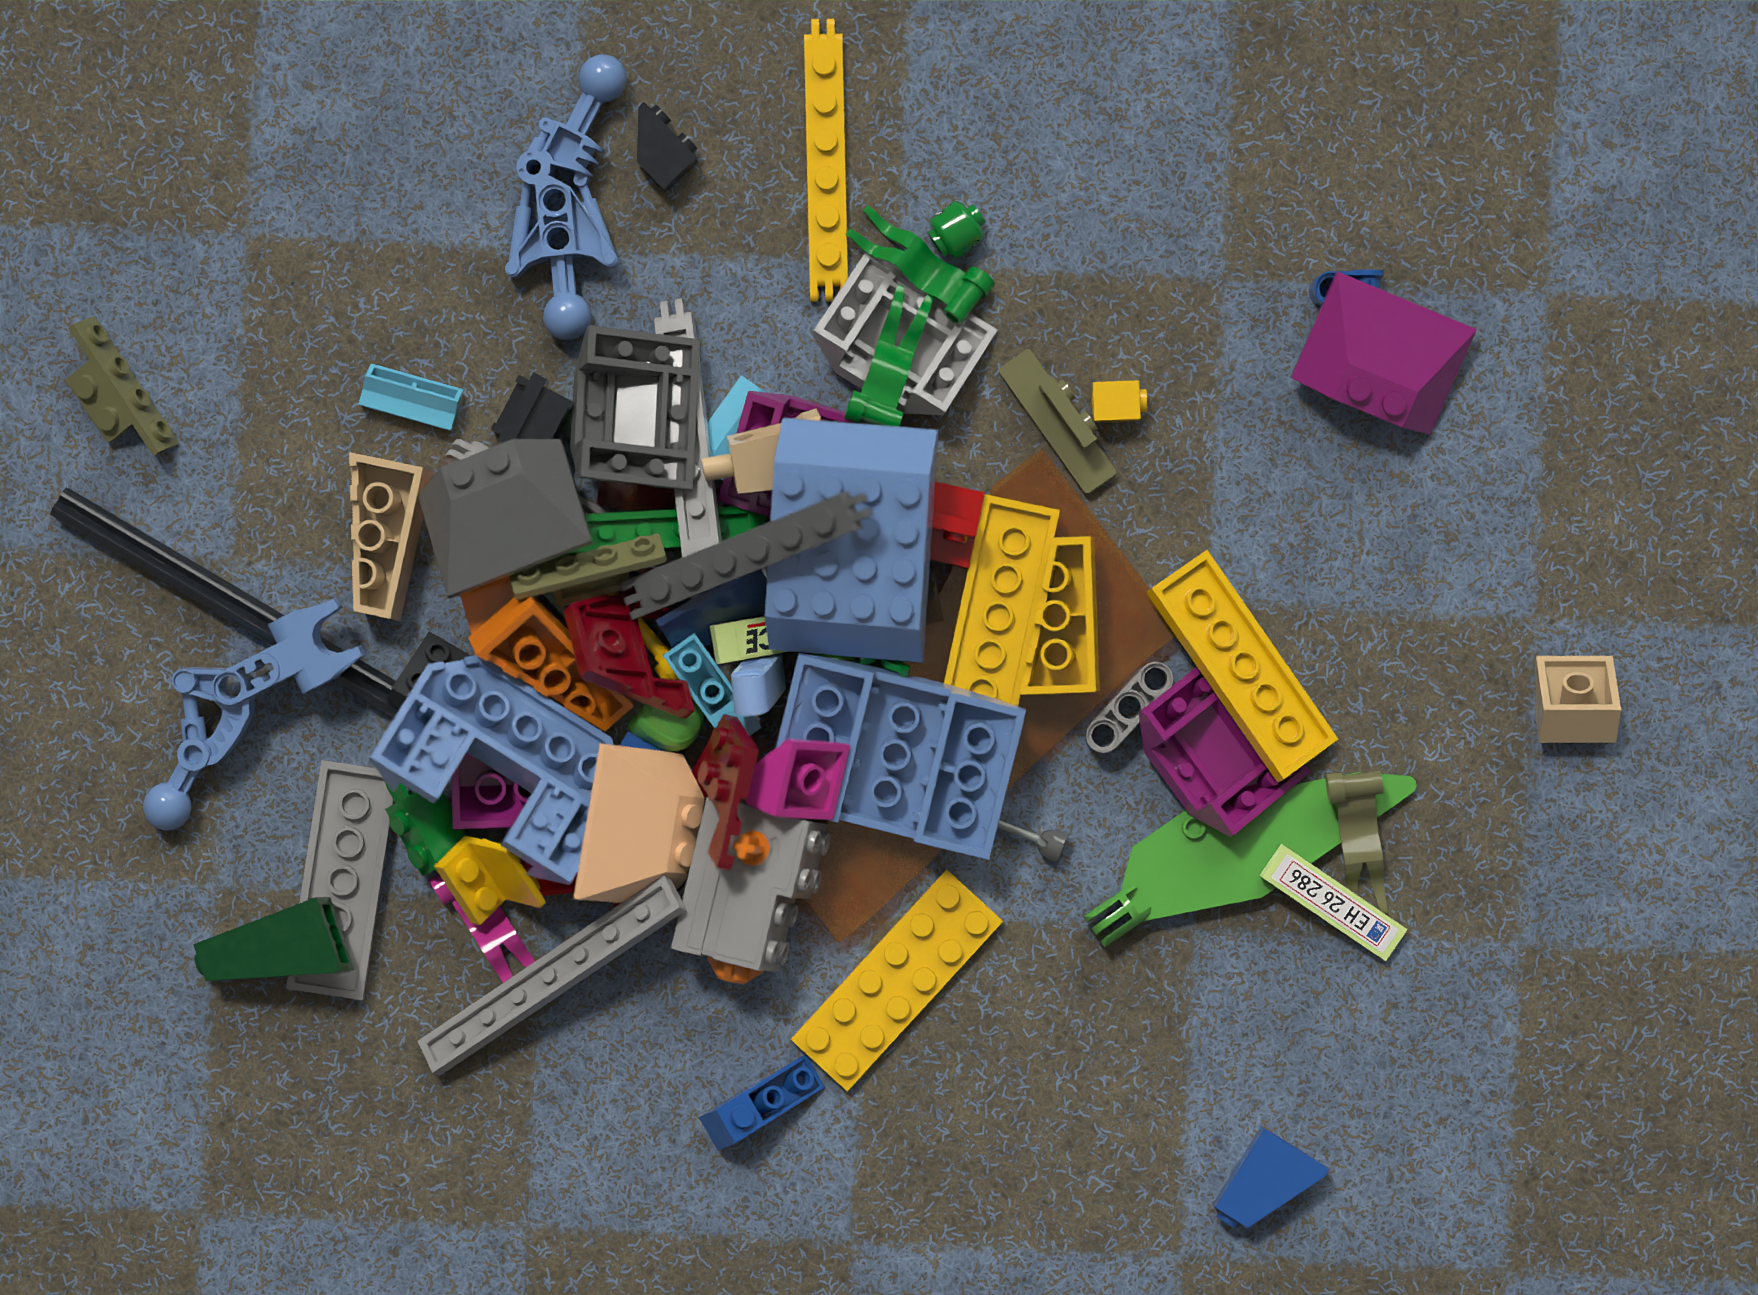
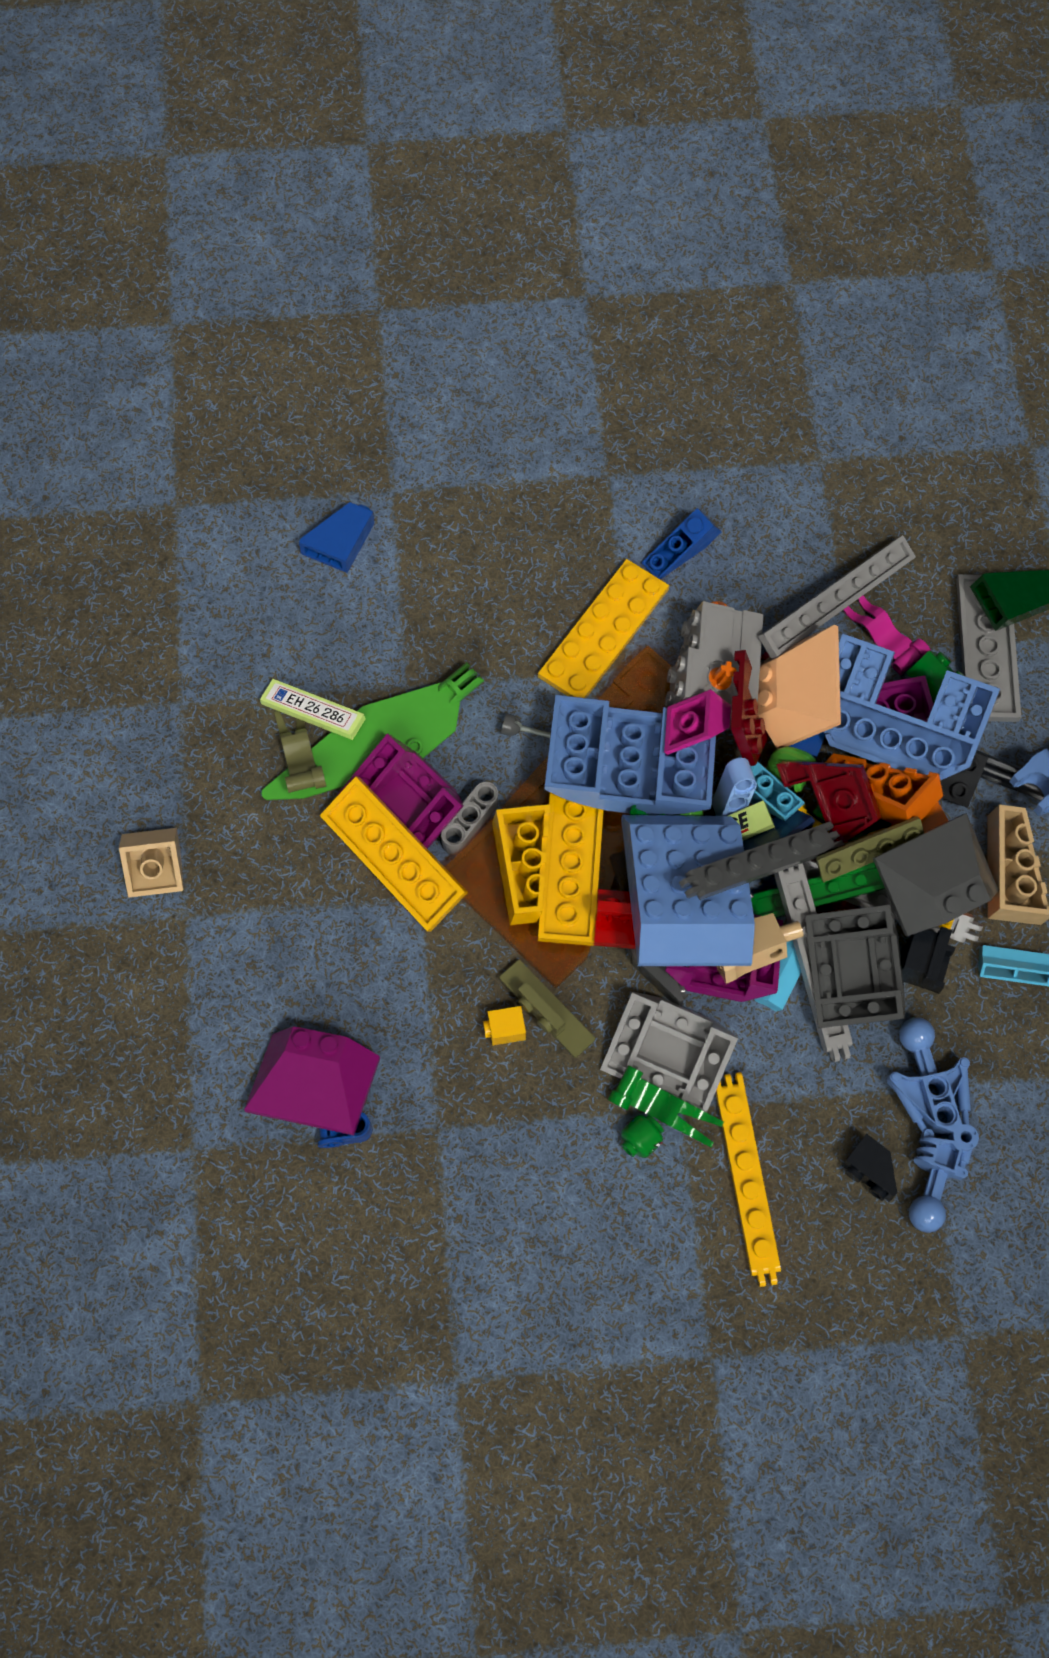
camera: 175 degrees right, 20 degrees down
(486, 875) = (909, 652): yellow bracket -> none
(888, 368) = (677, 1023): green flag -> none

